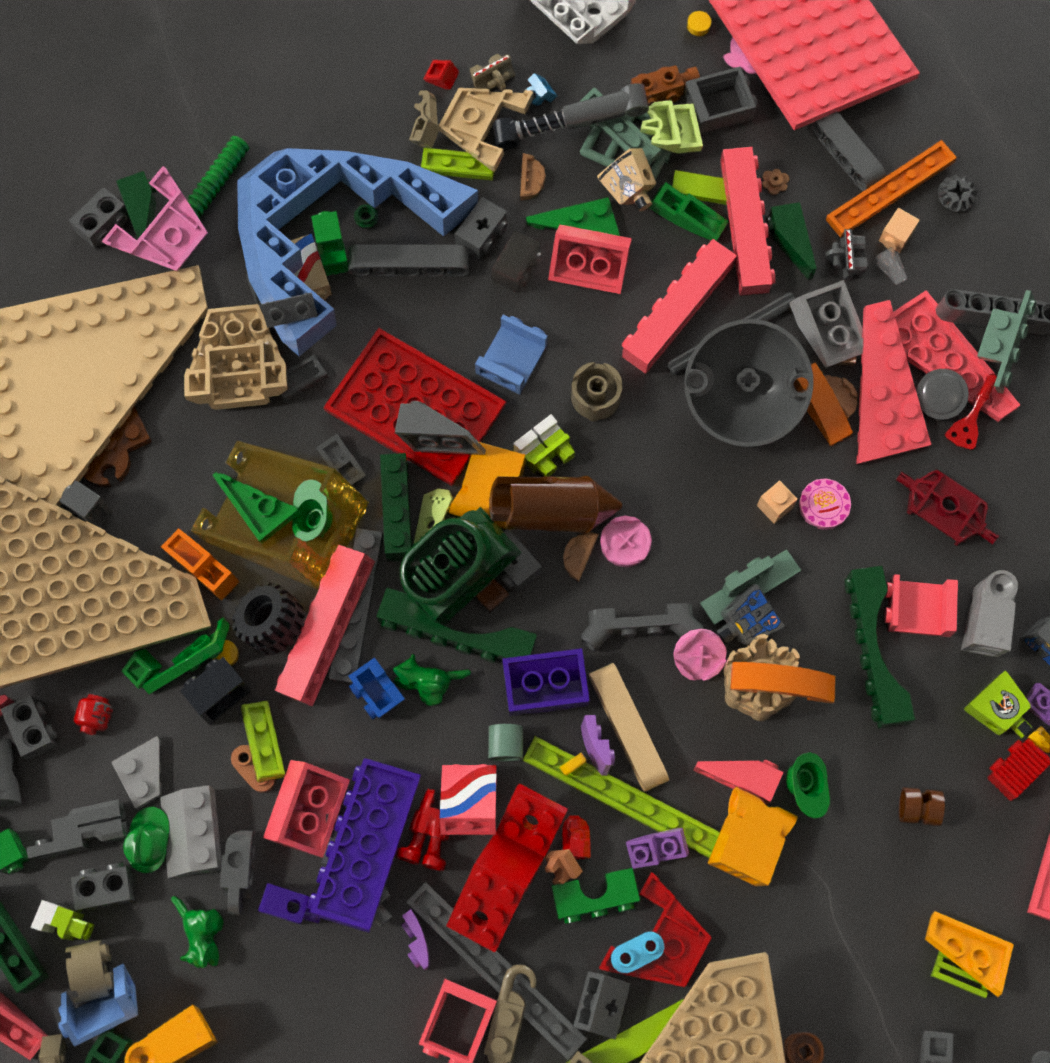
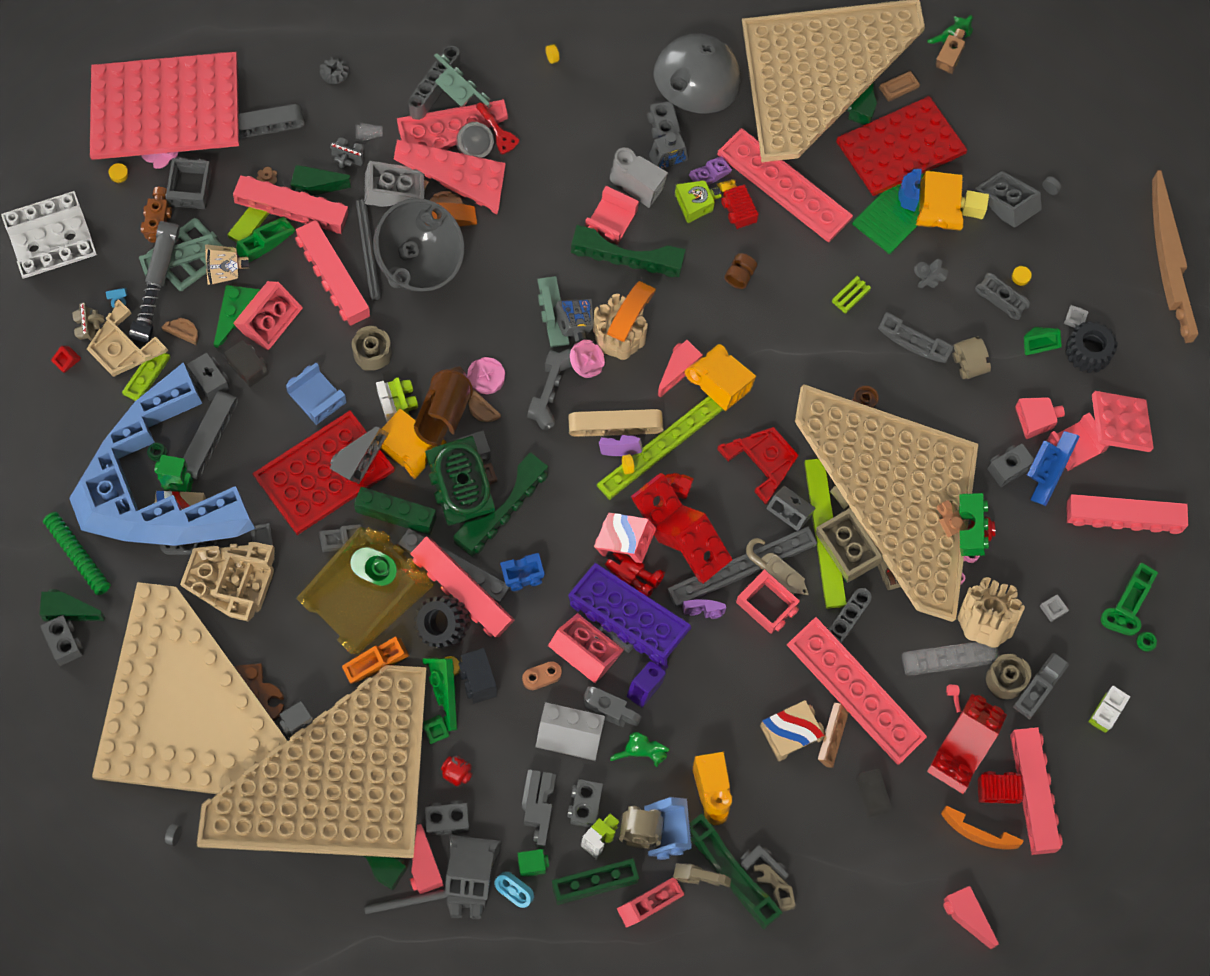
camera: 75 degrees left, 5 degrees down
(141, 772) = (512, 753): light grey wing -> none
(147, 840) = (563, 762): green piece -> none
(170, 235) = (107, 587): bright pink wing -> none
(260, 511) = (357, 602): green wing -> none
(262, 741) = (526, 660): lime tile -> none
(289, 310) = (225, 510): dark grey hinge -> none
(426, 125) = (100, 377): dark tan piece -> none
(430, 682) = (531, 536): green animal -> none
(433, 508) = (409, 488): yellowish green piece -> none
(505, 742) = (594, 502): sand green piece -> none
(545, 682) = (565, 459): dark purple slope -> none
(562, 865) = (692, 496): nougat tile -> none
(619, 894) = (720, 470): green arch -> none
(638, 953) = (766, 472): medium azure plate -> none
(657, 847) = (702, 437): medium lavender slope -> none
(673, 127) = (198, 218): yellowish green plate -> none
(777, 502) = (503, 270): light nougat brick -> none
(809, 784) = (700, 330): green piece -> none
(825, 504) = (516, 243): bright pink tile -> none
(891, 188) = (311, 108): orange plate -> none
(899, 230) = (345, 116): light nougat brick -> none
(927, 502) = (542, 182): dark red plate -> none
(972, 950) = (839, 281): light orange wing -> none

